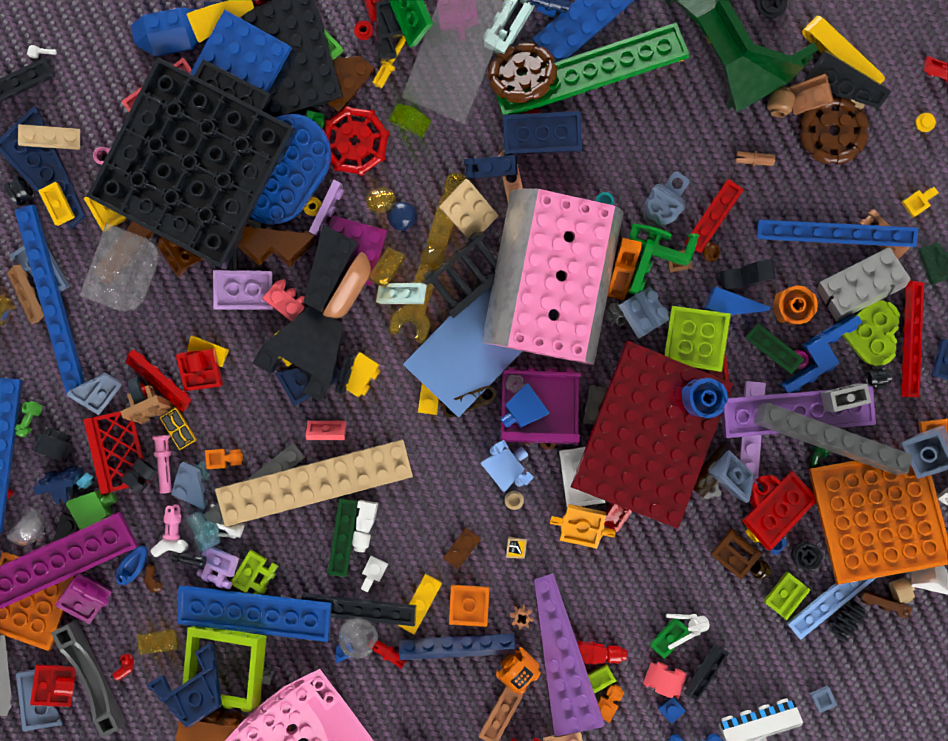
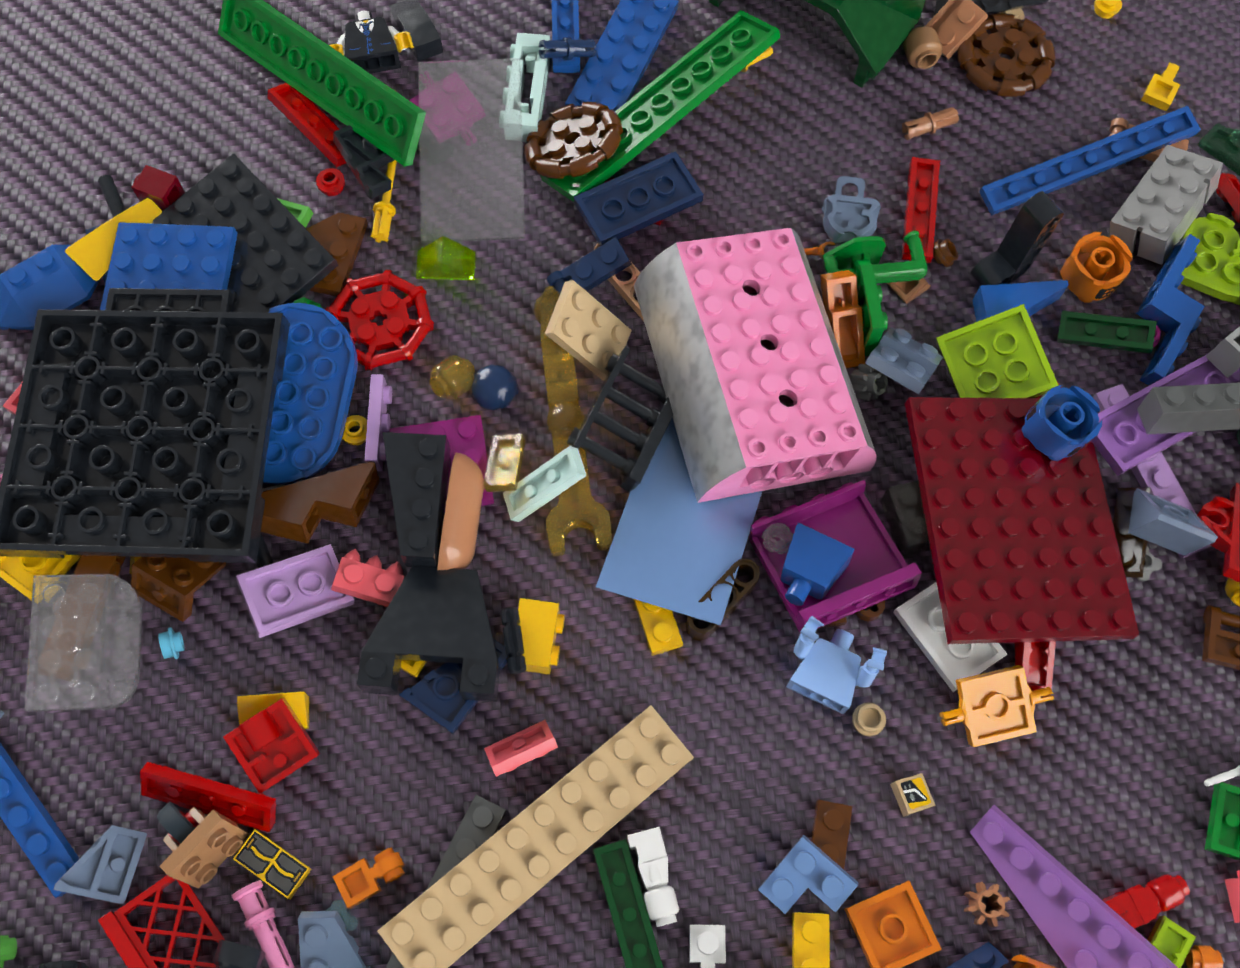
camera: 30 degrees left, 20 degrees down
(167, 288) = (171, 643): none -> medium azure plate
(442, 559) = (807, 868): none -> medium blue plate
(634, 214) = (818, 251): none -> orange hand

